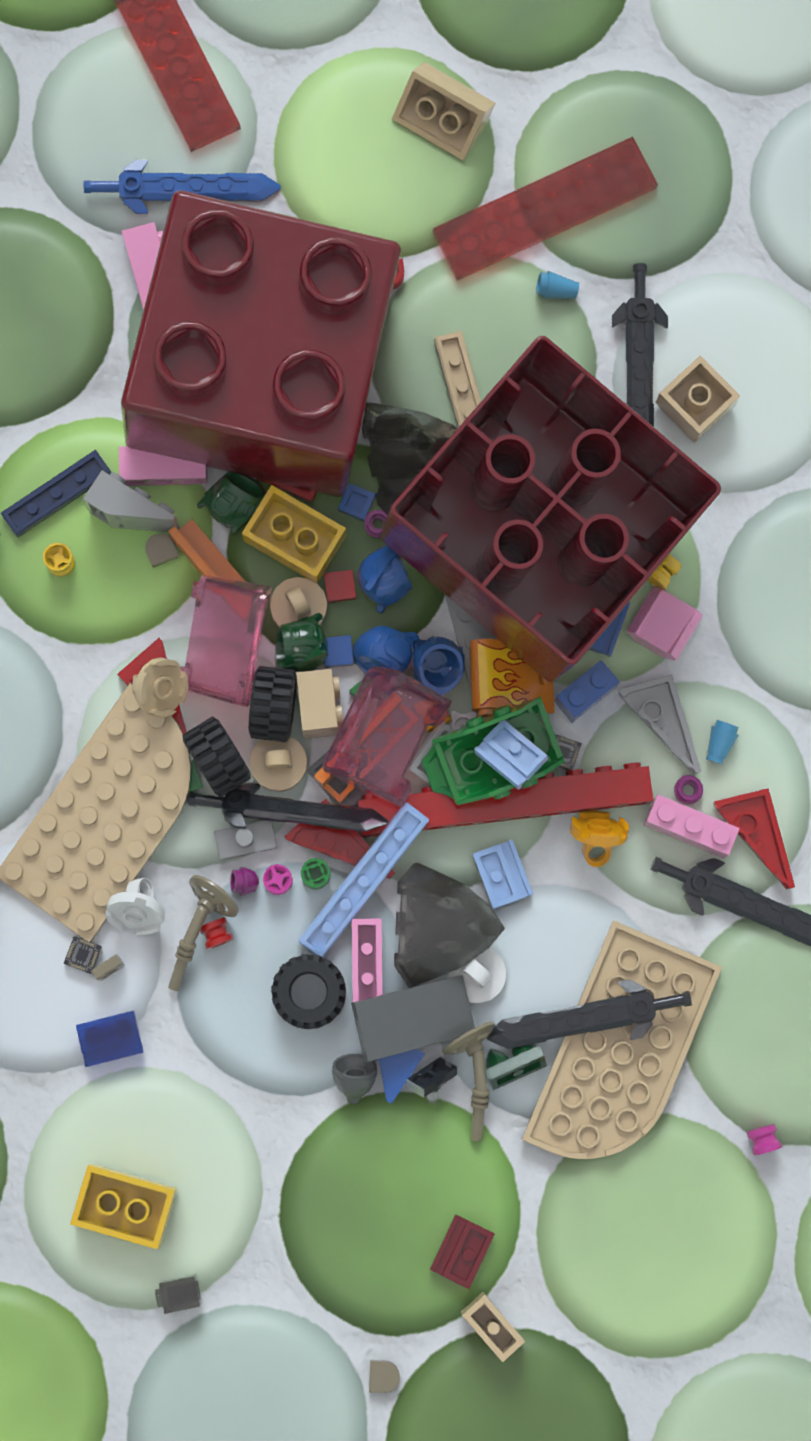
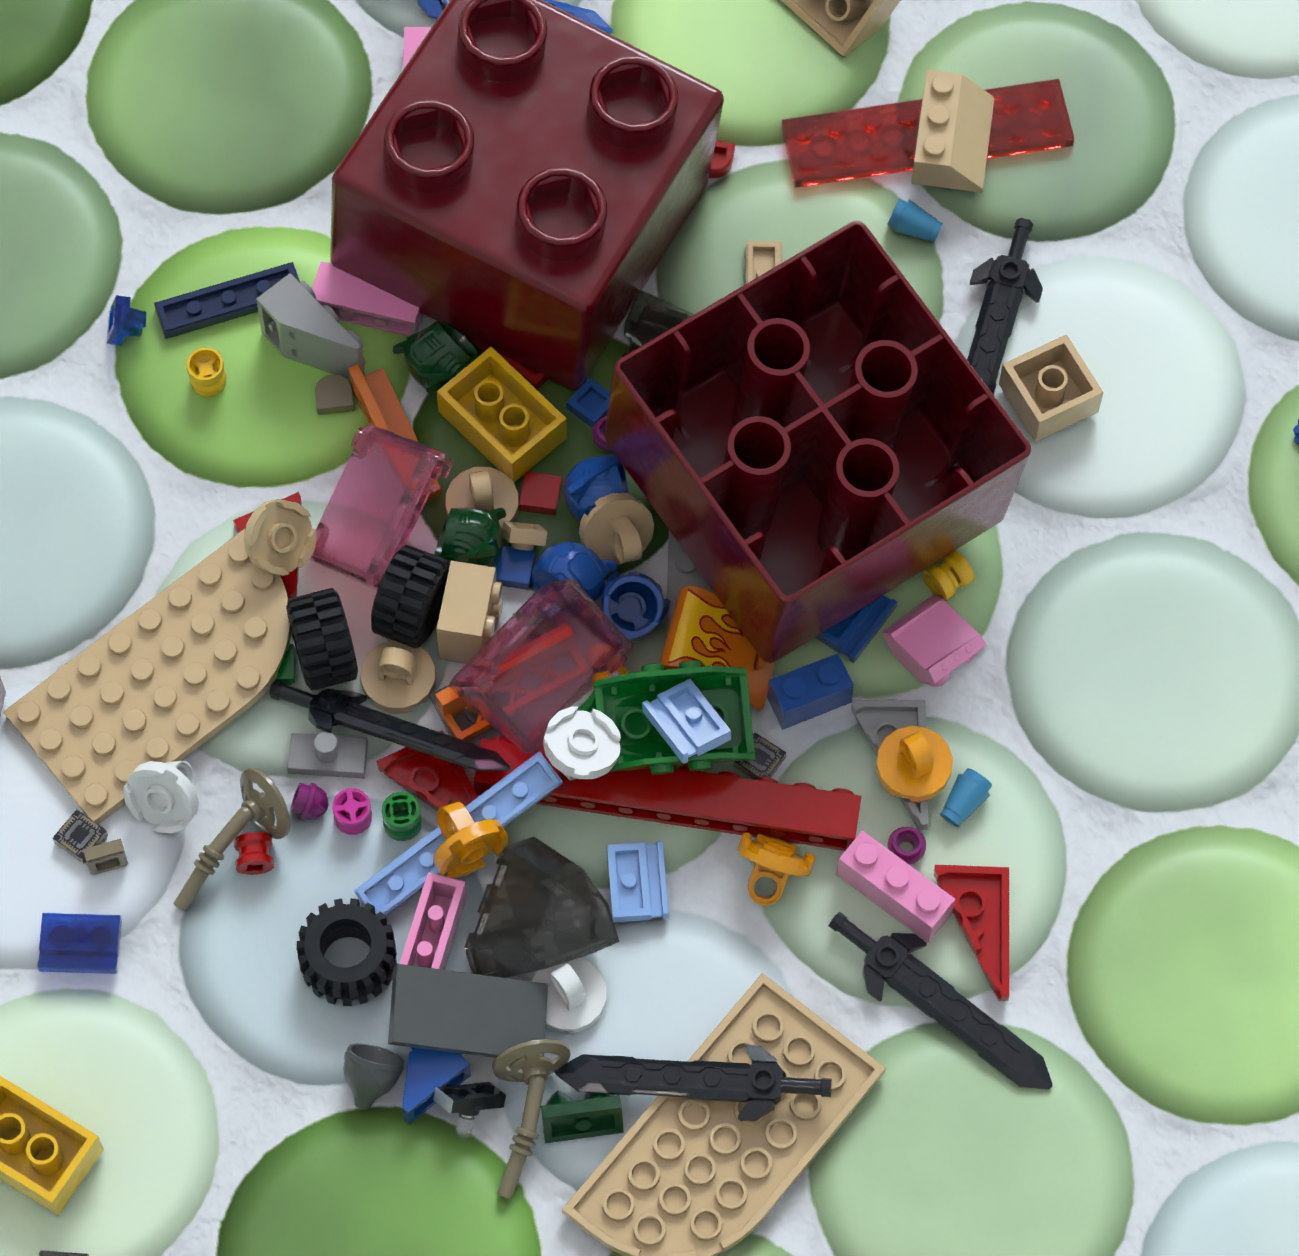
camera: 20 degrees right, 15 degrees down
(339, 626) = (524, 535): none -> tan plate
(371, 886) = (466, 841): none -> light orange tile
(409, 606) = (617, 528): none -> tan tile
(438, 792) = (582, 743): none -> white tile
(567, 208) = (952, 133): none -> tan slope
(679, 728) = (914, 763): none -> light orange tile

